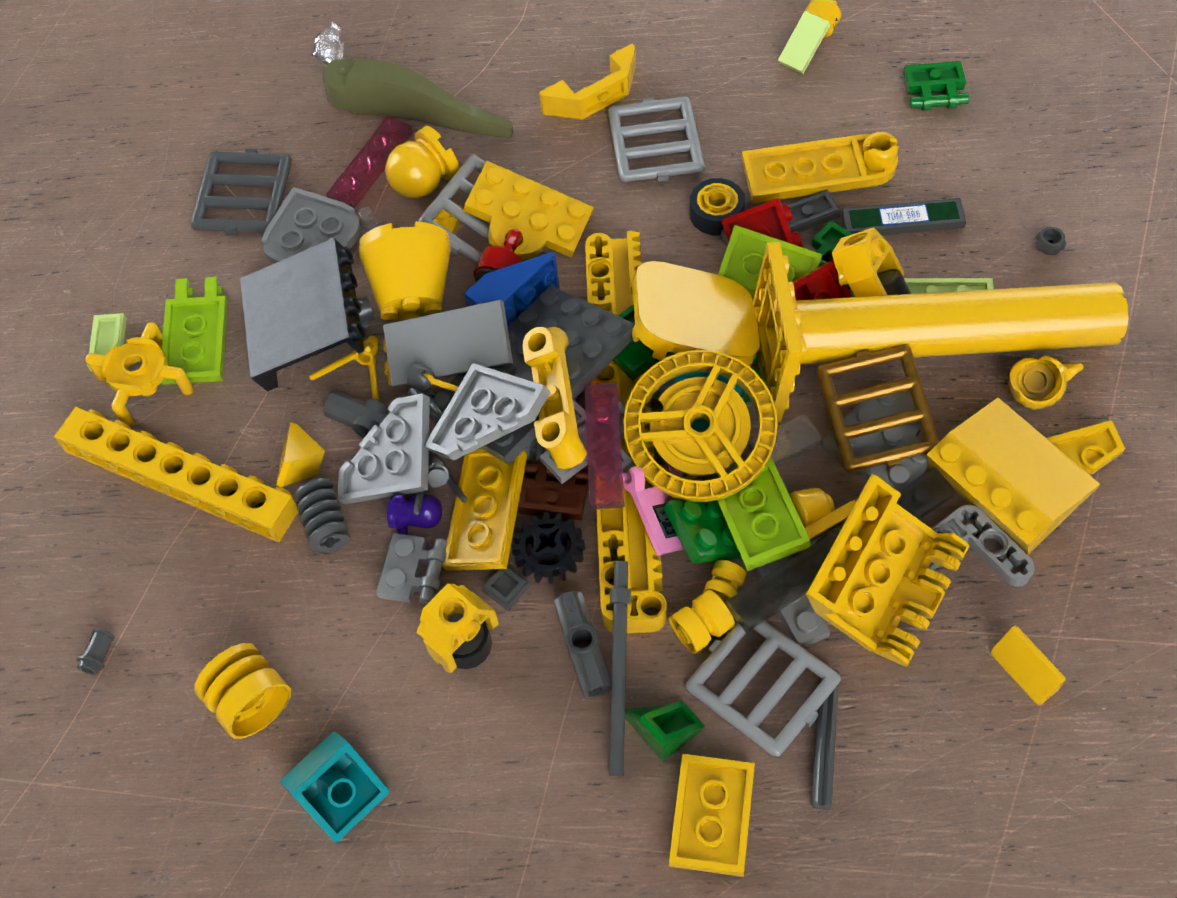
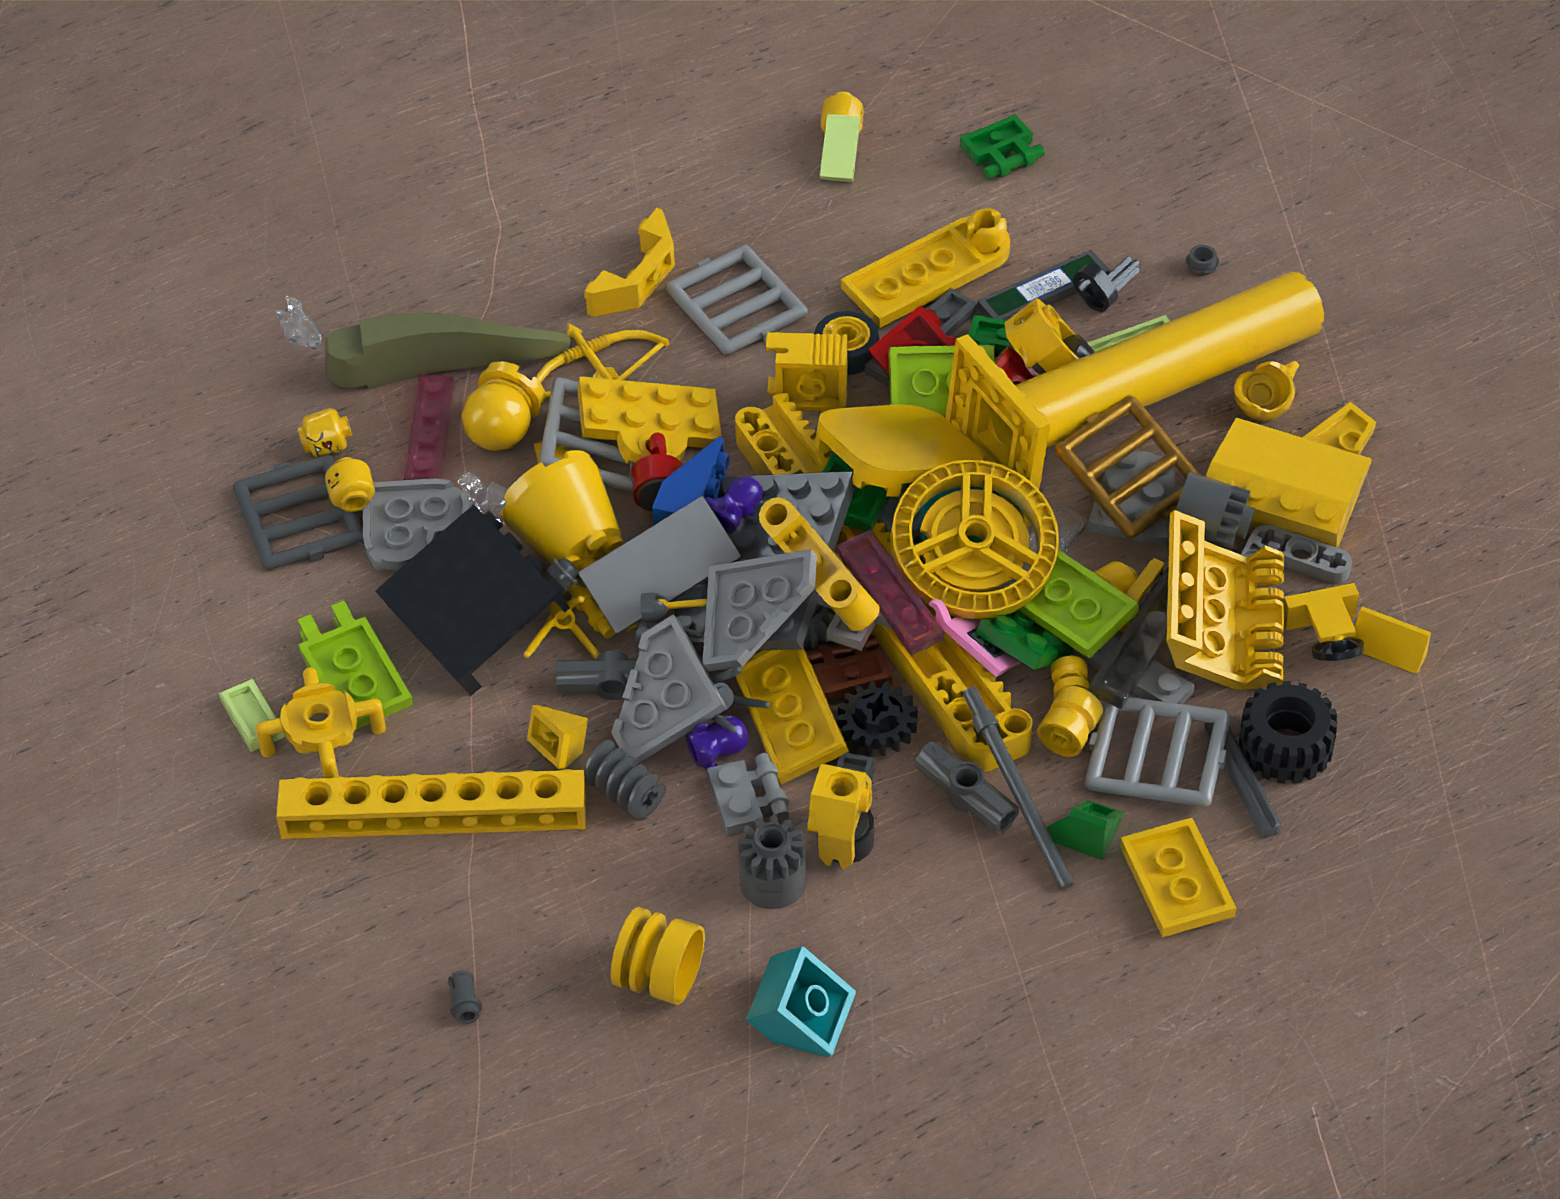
camera: 30 degrees left, 10 degrees down
(276, 184) = (350, 484): none -> yellow head
(291, 136) = (324, 432): none -> yellow head
(373, 320) = (563, 572): none -> dark grey plate
(384, 646) = (772, 863): none -> dark grey gear
(522, 164) = (587, 349): none -> yellow piece
(534, 314) = (737, 503): none -> dark purple animal
(668, 220) = (810, 369): none -> yellow piece
(892, 692) = (1293, 709): none -> black tyre
(924, 479) = (1219, 506): none -> dark grey gear
(948, 236) = (1104, 287): none -> black piece
(980, 625) = (1330, 615): none -> yellow piece

